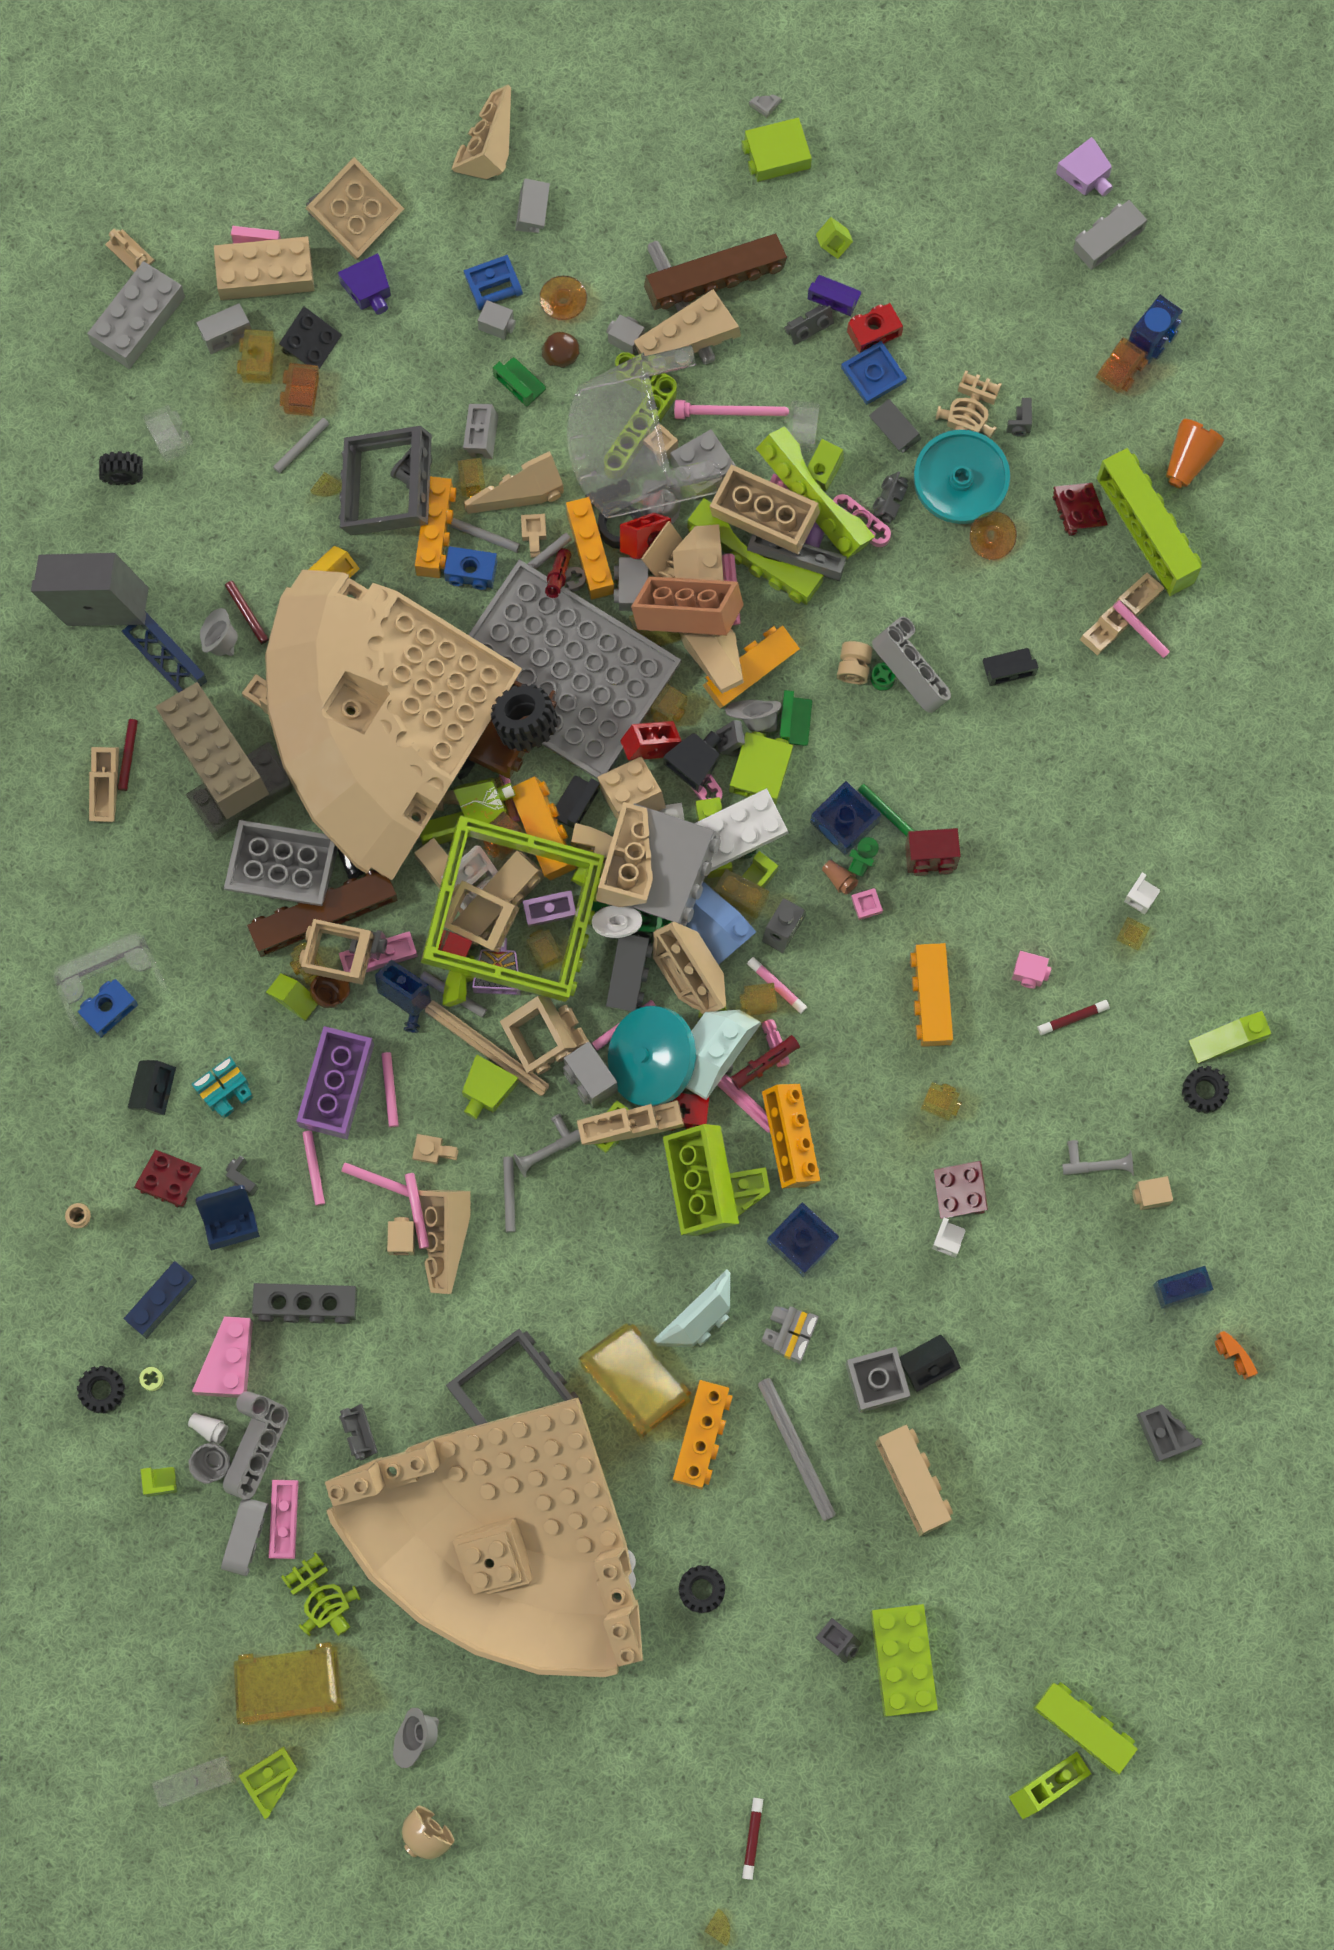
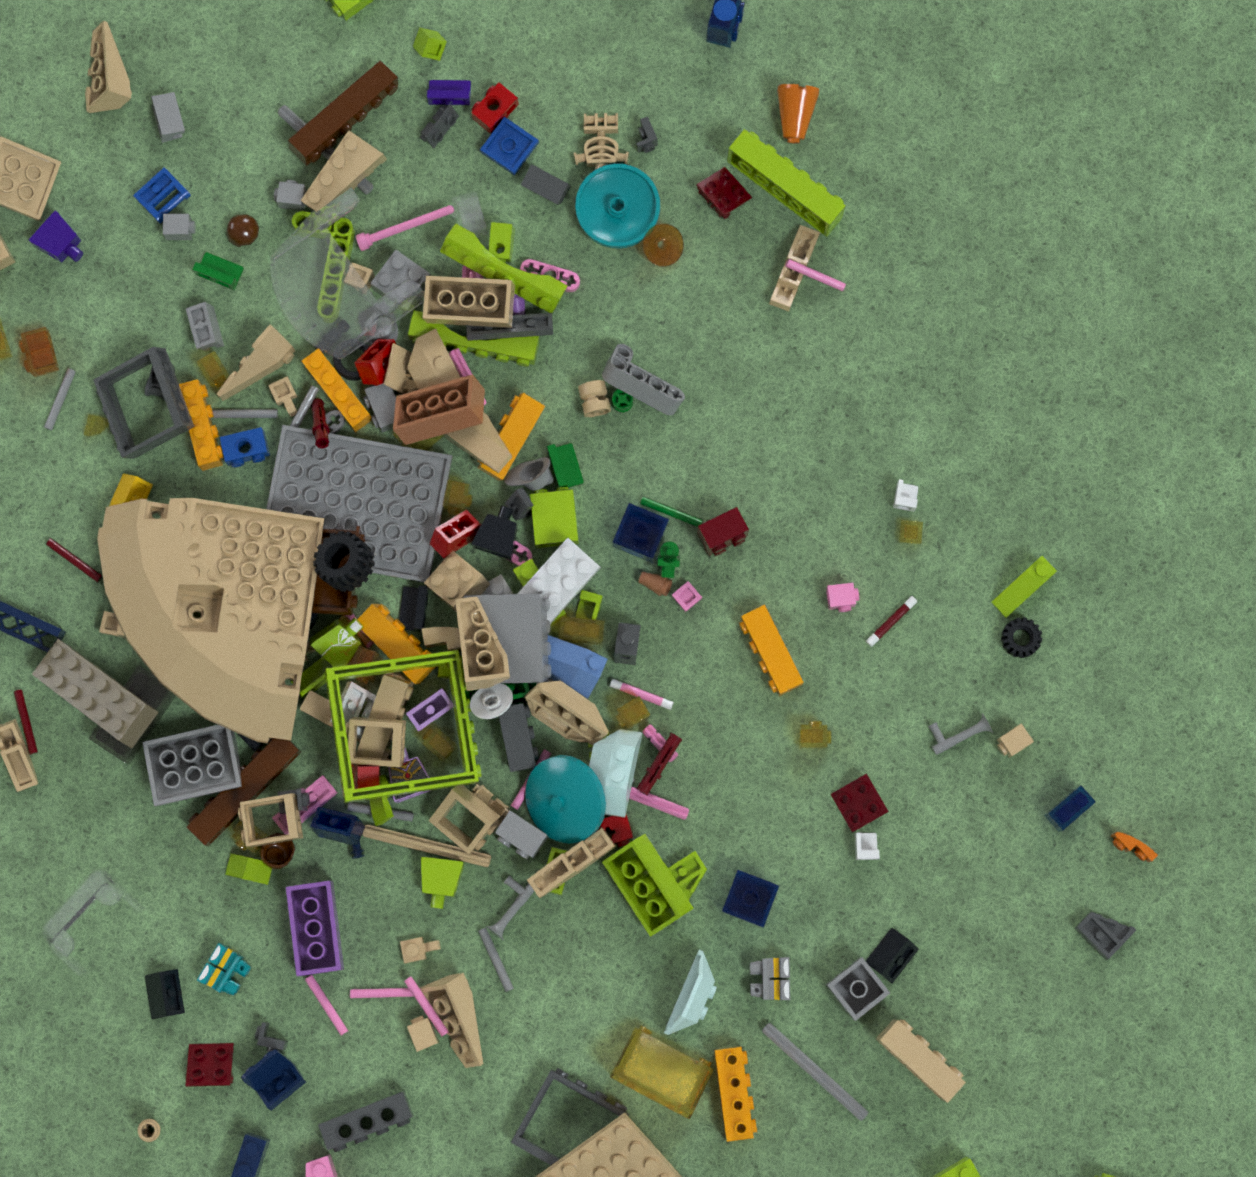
camera: 20 degrees left, 5 degrees up
(102, 1021) = (110, 935): blue brick -> none
(218, 634) = (57, 589): light grey piece -> none
(309, 338) = (28, 305): black hinge -> none
(390, 1089) = (361, 913): bright pink bar -> none
(559, 288) = (223, 176): clear orange dish -> none
(791, 1136) = (705, 816): light orange brick -> none
(893, 488) = (565, 237): dark grey hinge -> none
(1010, 666) = (721, 349): black panel -> none
(1122, 365) = (710, 59): clear orange brick -> none

